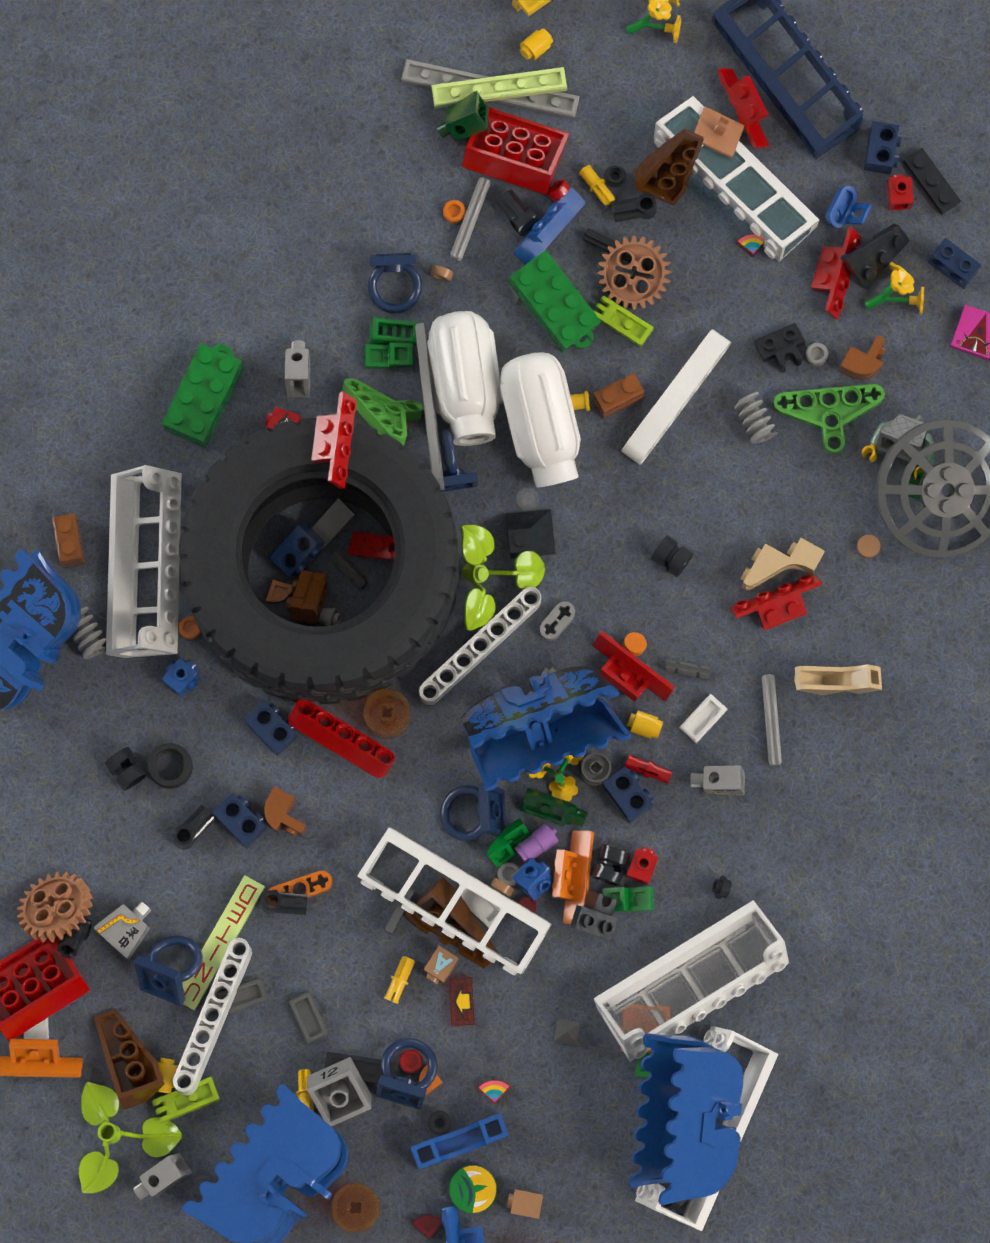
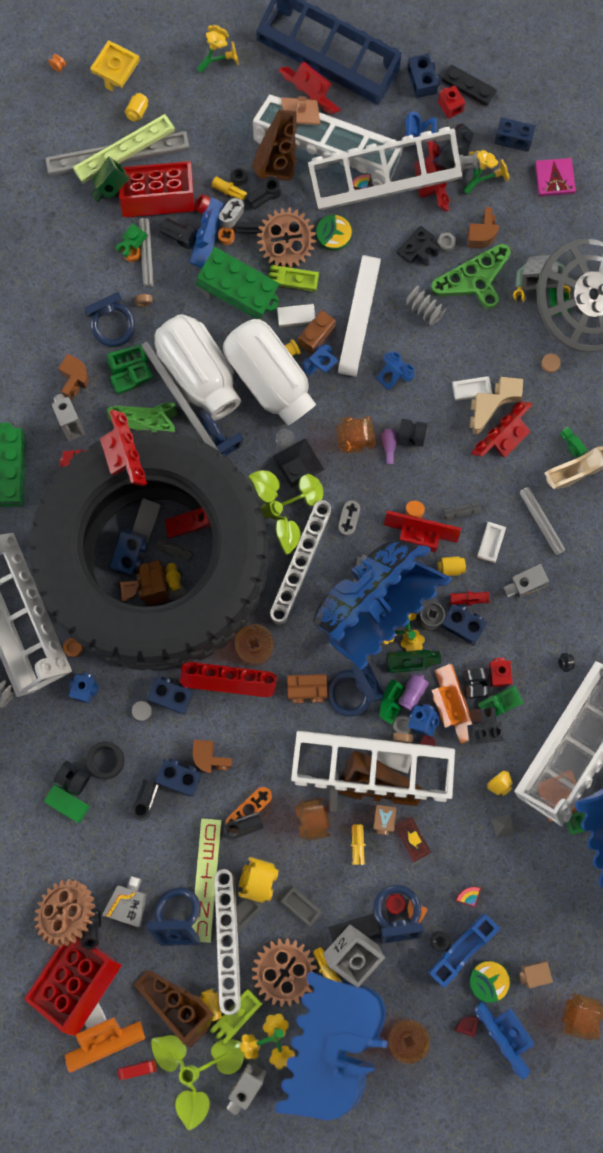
camera: 25 degrees left, 0 degrees up
(57, 1105) = (136, 1069): none -> red beam
(108, 793) = (66, 803): none -> green slope
(222, 1130) = (276, 1029): none -> yellow plant
(233, 730) = (141, 711): none -> light grey tile
(248, 1058) = (269, 961): none -> nougat gear
(274, 966) = (257, 880): none -> yellow brick
(330, 326) = (76, 373): none -> dark orange brick
(332, 599) = (173, 576): none -> yellow axle
(363, 930) = (313, 819): none -> clear orange brick
(423, 786) = (307, 688): none -> dark orange brick
(461, 196) = (132, 238): none -> green plate
(564, 243) = (228, 231): none -> orange bush
(585, 985) = (500, 784): none -> yellow cone
(588, 218) = (228, 211): none -> light grey beam
(599, 428) = (321, 354): none -> blue bracket
(605, 364) = (295, 315): none -> white tile
(606, 530) = (355, 434): none -> clear orange brick
(642, 556) = (389, 441): none -> medium lavender cone
(690, 474) = (398, 369): none -> blue bracket
(693, 287) = (334, 232): none -> tile
(759, 534) = (469, 388): none -> white tile
(775, 264) = (388, 187): none -> white window
(848, 654) = (574, 444): none -> green plate
(881, 274) = (469, 162): none -> light grey bush

